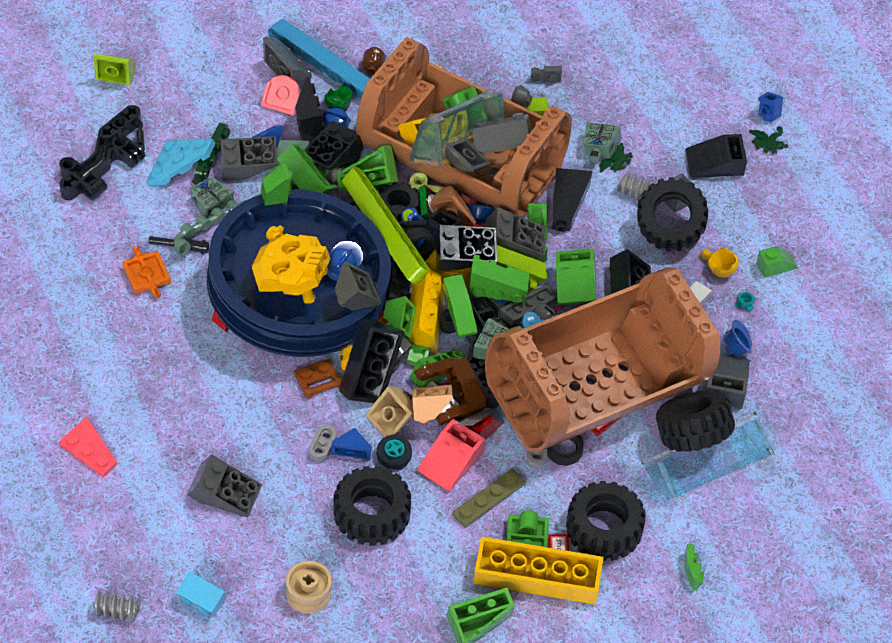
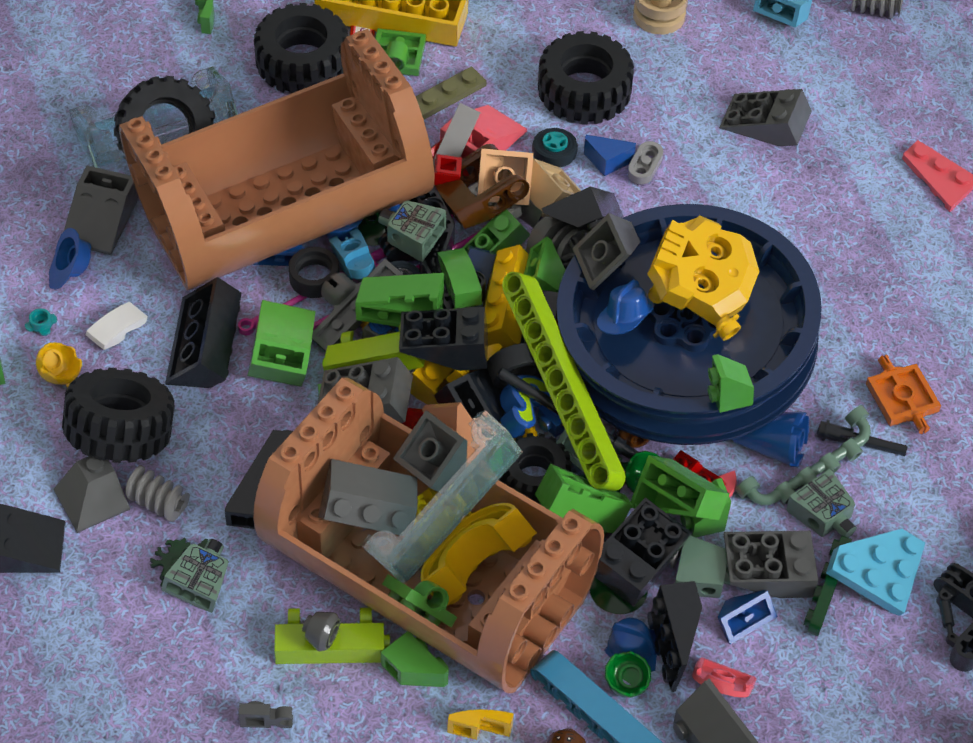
camera: 175 degrees left, 0 degrees up
(446, 342) = (482, 260): none -> dark blue brick
(476, 400) = (447, 169): none -> red slope

